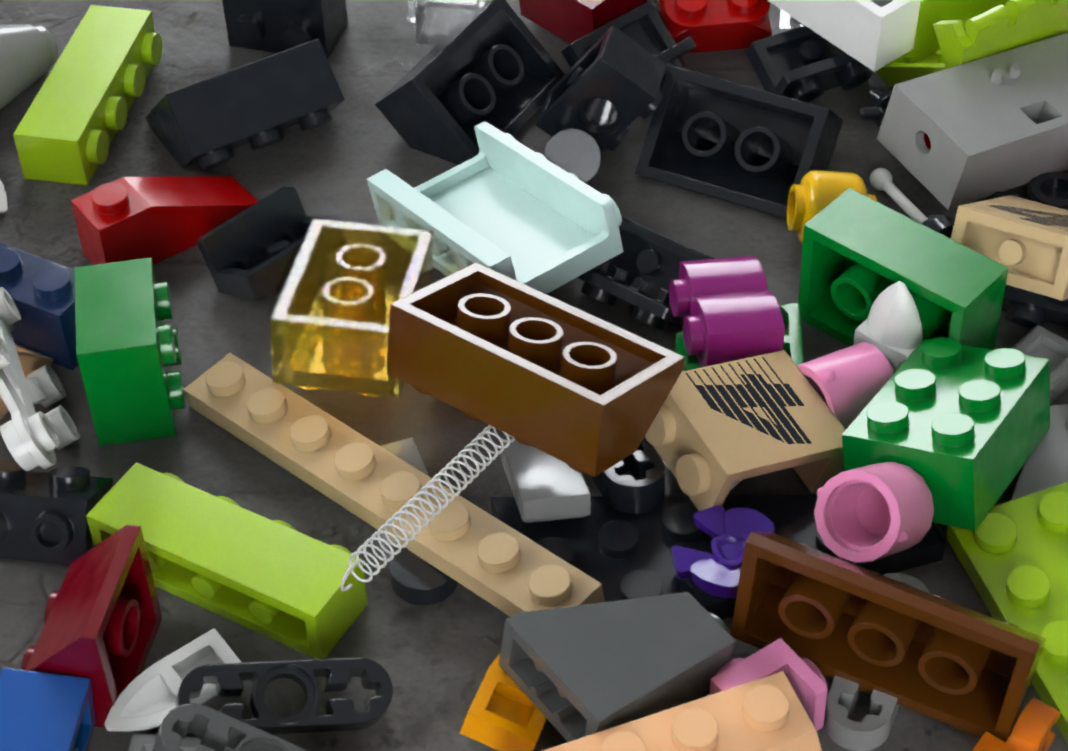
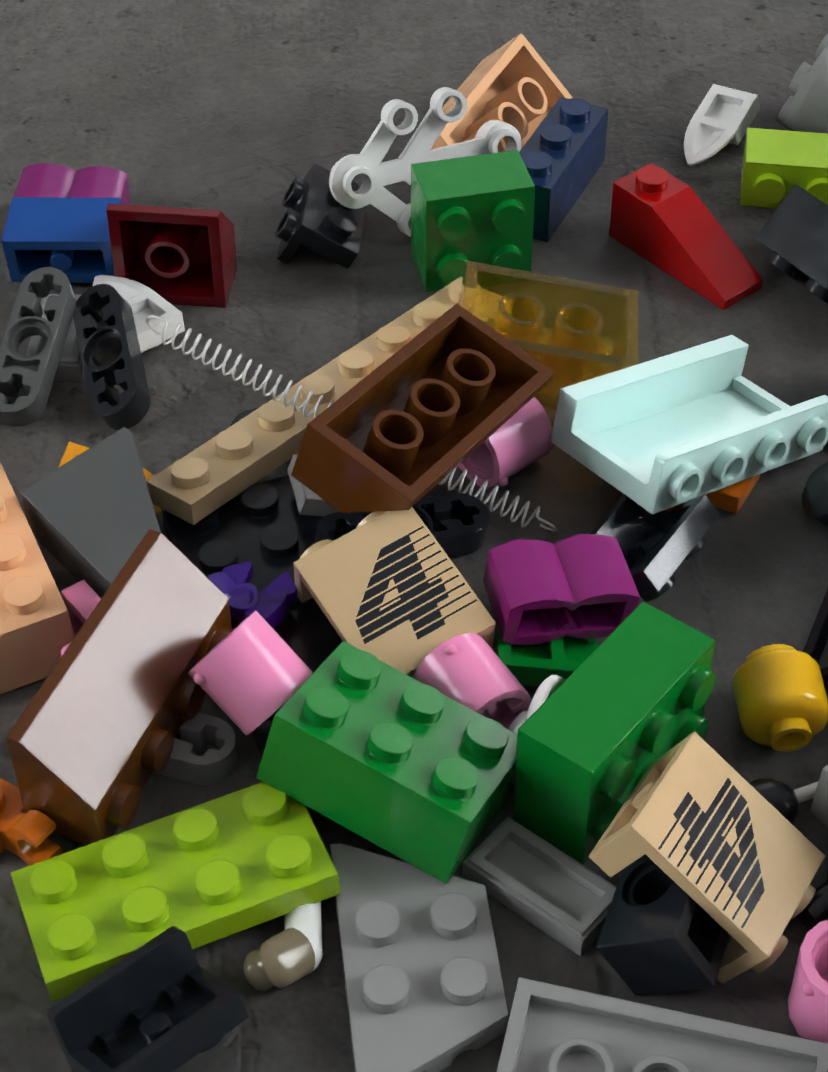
camera: 85 degrees right, 0 degrees up
(236, 560) = (261, 317): lime brick -> none
(258, 246) = (669, 301): black bracket -> none

